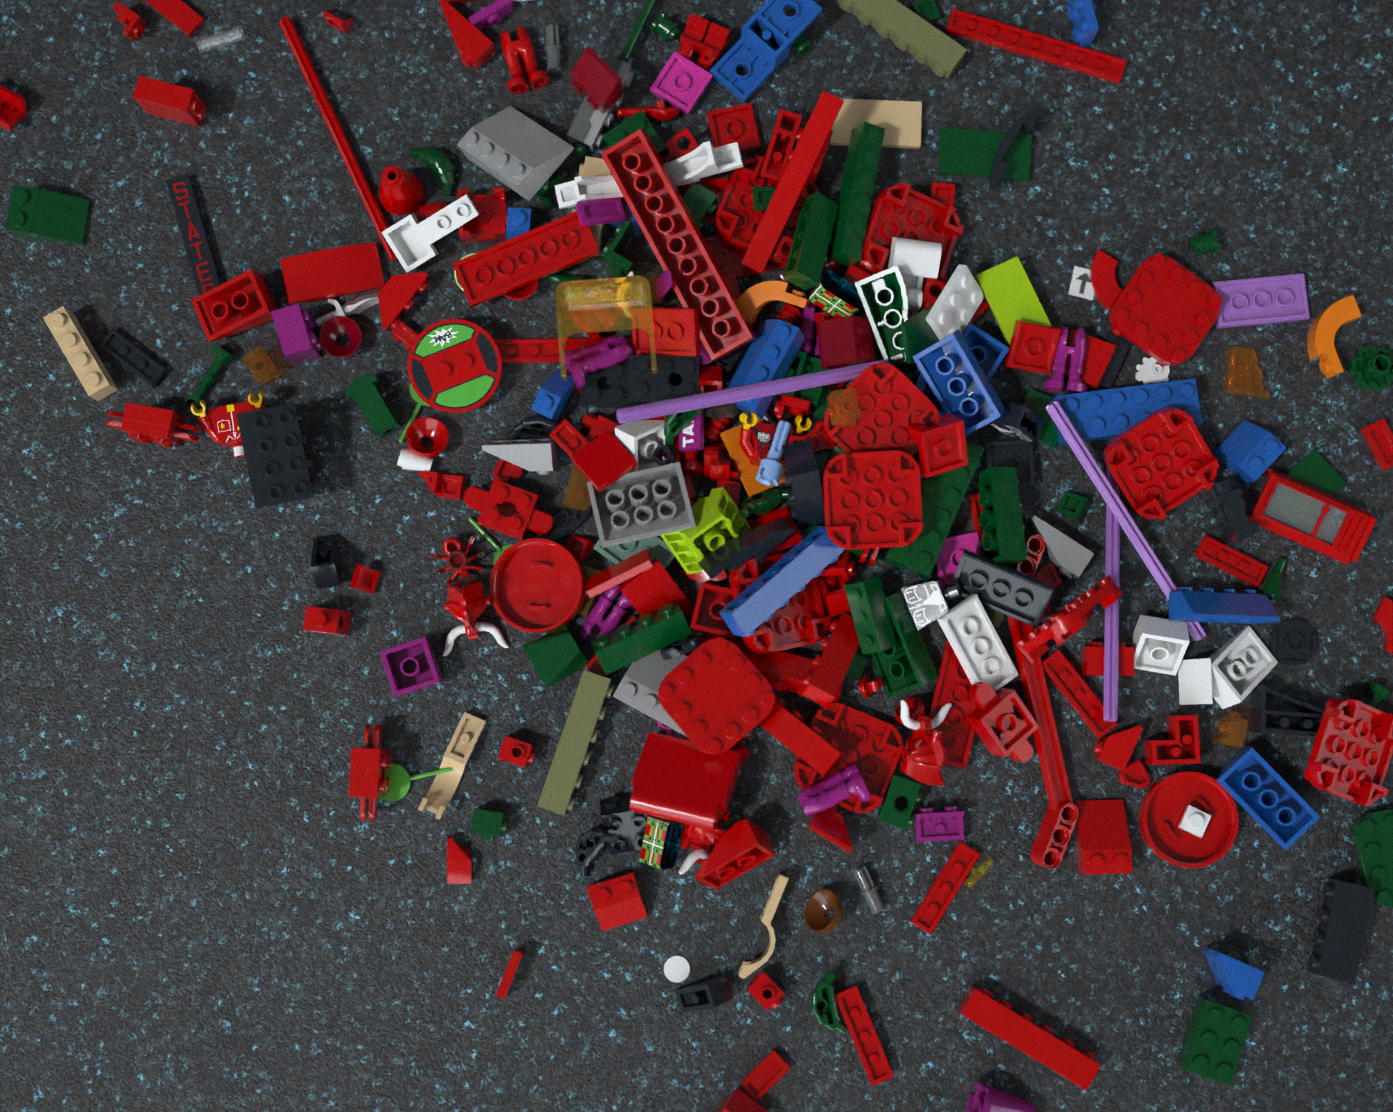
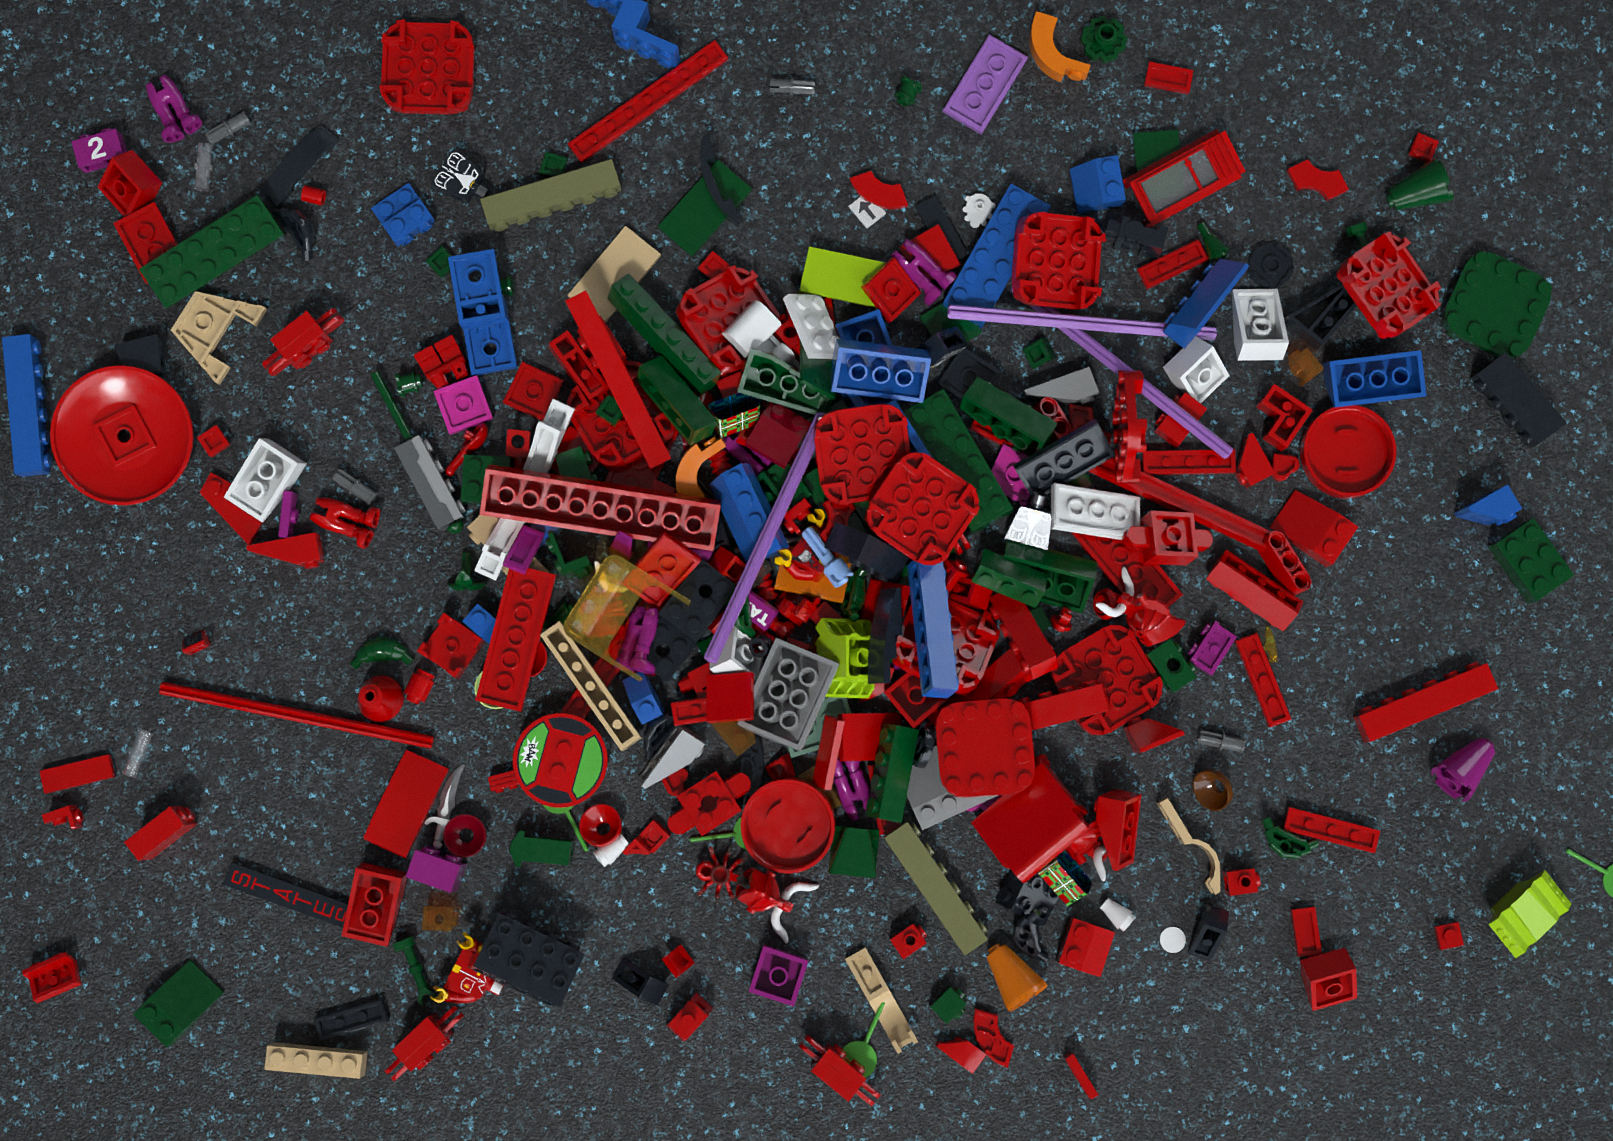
camera: 55 degrees left, 0 degrees up
(398, 296) = (466, 764): red slope -> none
(414, 240) = (432, 716): white plate -> none
(487, 876) = (989, 1037): none -> red tile
(515, 150) = (419, 580): light grey slope -> none
(530, 348) = (591, 686): none -> tan brick
(549, 859) = (1013, 977): none -> orange cone
(596, 81) = (415, 474): dark red slope -> none
(663, 909) = (1119, 915): none -> white cone
(833, 790) = (1125, 711): magenta piece -> none
(838, 413) = (833, 484): clear orange brick -> none
(940, 445) = (920, 423): red panel -> none
(1013, 825) = (1254, 590): none -> red brick
(1137, 148) = (792, 86): none -> dark grey axle
(1165, 310) = (938, 164): red plate -> none
(1194, 821) = (1353, 448): white plate -> none
(1195, 682) = (1246, 365): white sticker -> none
(1244, 374) = (1034, 141): clear orange wing -> none

